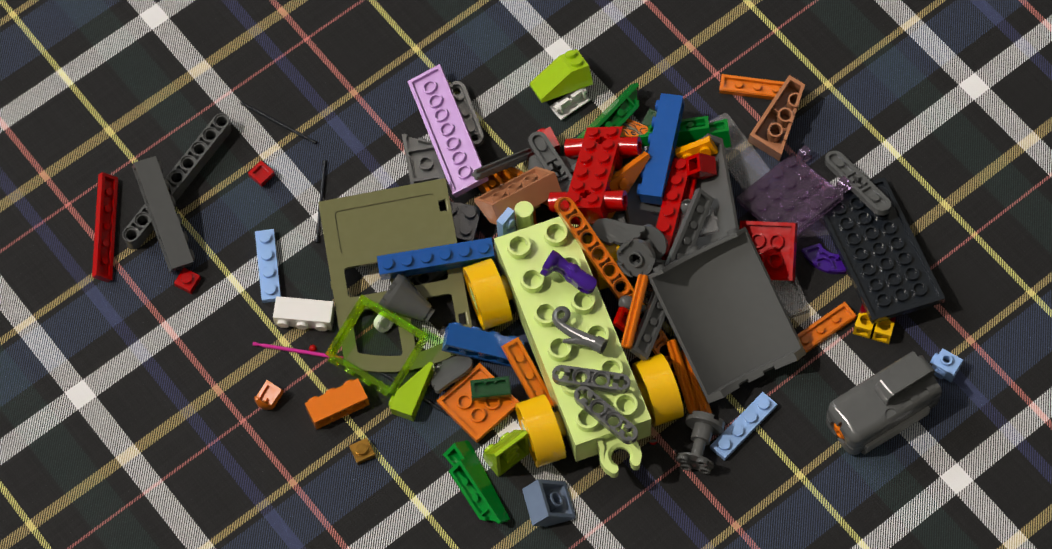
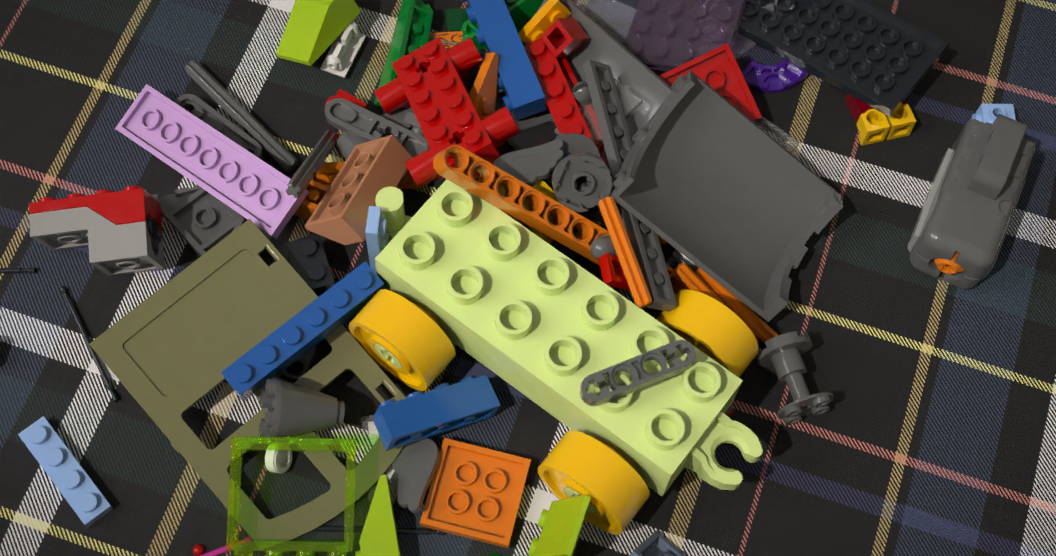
camera: 40 degrees left, 0 degrees up
(303, 313) = (157, 509): white brick -> none
(372, 144) = (117, 227): none -> light grey piece
(484, 111) = (241, 116): none -> dark grey axle
(490, 388) = (484, 463): dark green plate -> none
(525, 369) = (515, 413): orange tile -> none
(571, 272) = (517, 244): dark purple piece -> none
(577, 336) = (580, 324): dark grey plant -> none
(603, 417) = (690, 404): dark grey beam -> none
(743, 426) = (822, 326): light blue plate -> none
(826, 326) = (830, 147): orange tile -> none

